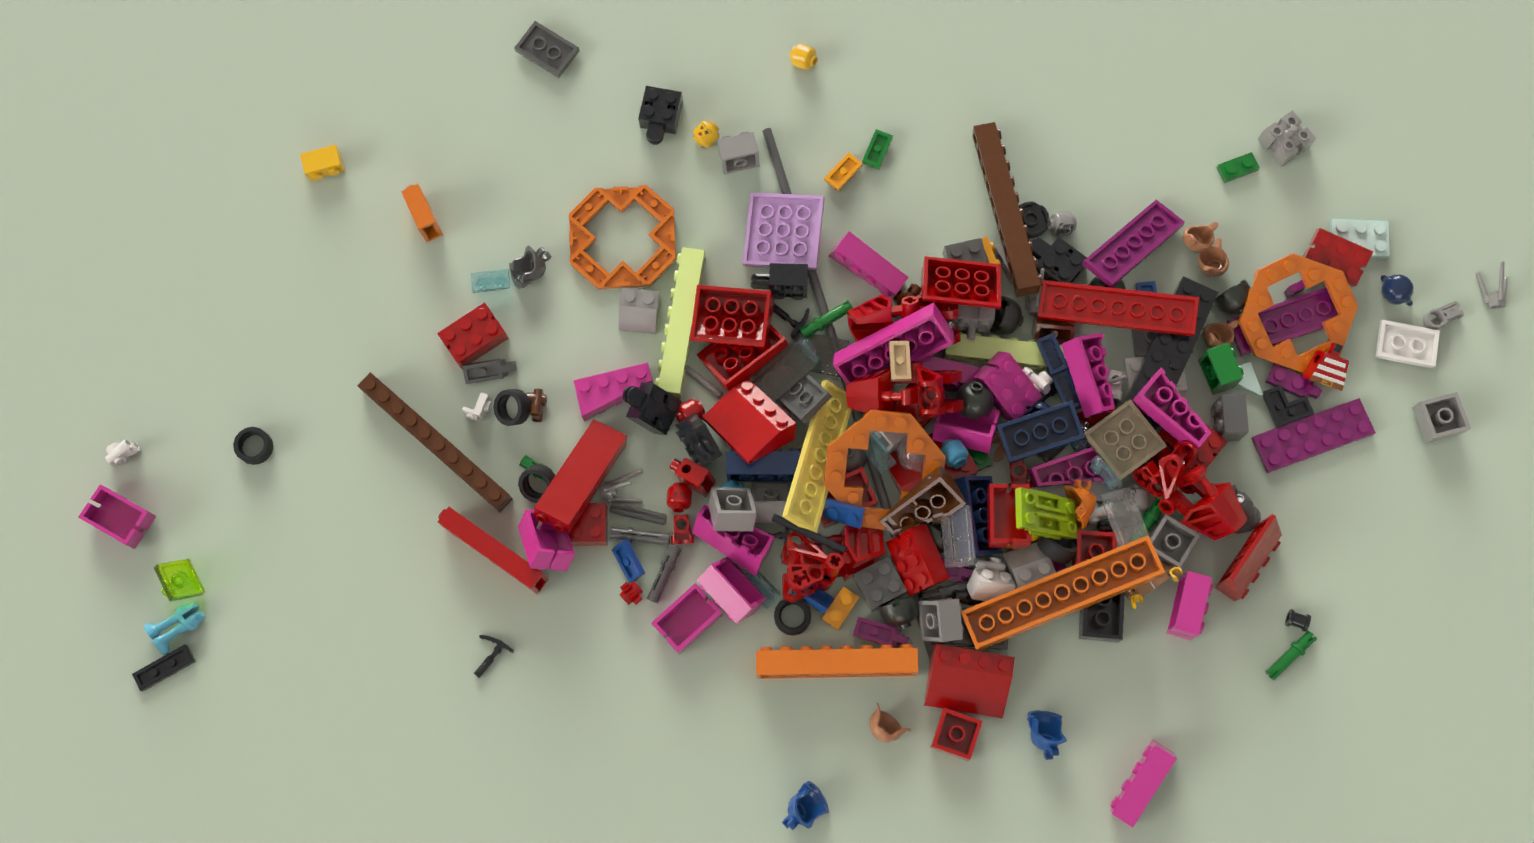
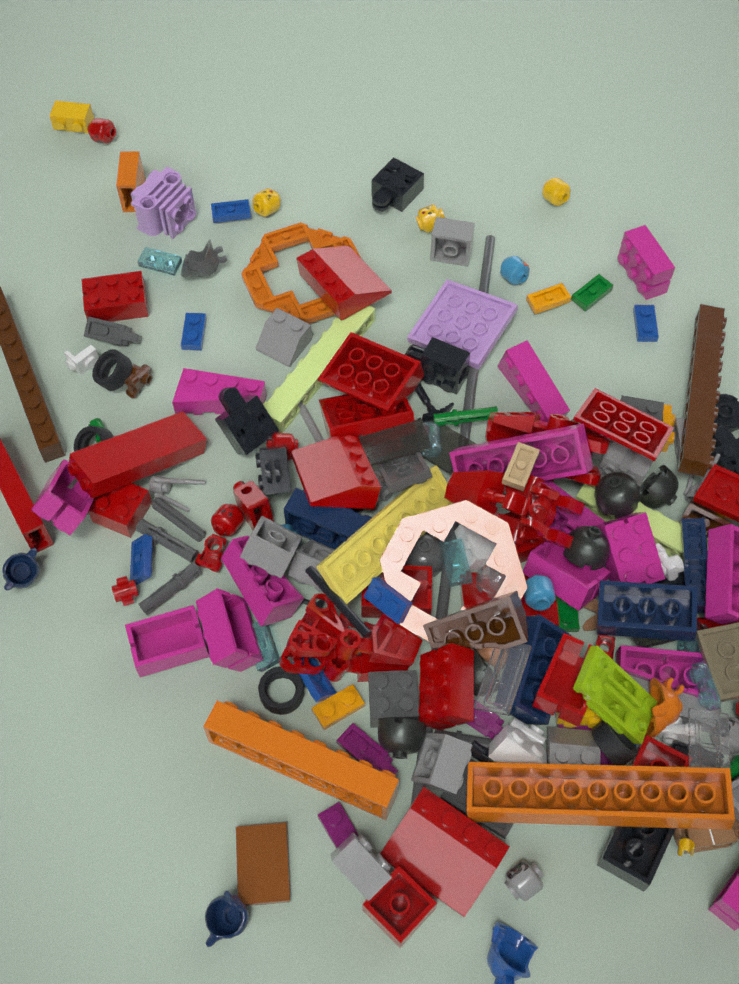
camera: 20 degrees right, 15 degrees down
(360, 166) = (101, 130): none -> red head
(465, 223) = (163, 204): none -> lavender piece
(525, 201) = (230, 211): none -> blue plate
(539, 615) = (20, 570): none -> dark blue hair
(546, 49) = (320, 105): dark grey plate -> none
(553, 179) = (266, 202): none -> yellow head
(557, 336) = (193, 331): none -> blue plate
(663, 234) = (341, 279): none -> red slope
(803, 156) = (514, 270): none -> dark azure head
(805, 806) = (182, 907): blue helmet -> none
(839, 799) = (225, 918): none -> dark blue hair
(843, 749) = (262, 864): none -> dark orange tile
(883, 719) = (317, 850): nougat hair -> none
(891, 702) = (336, 824): none -> magenta hinge
(911, 103) = (645, 262): none -> dark pink piece
(918, 720) = (361, 866): none -> light grey brick
(933, 160) = (645, 323): none -> blue plate
(979, 343) = (617, 494): none -> pearl dark grey cylinder
(1033, 674) = (524, 880): none -> light grey head

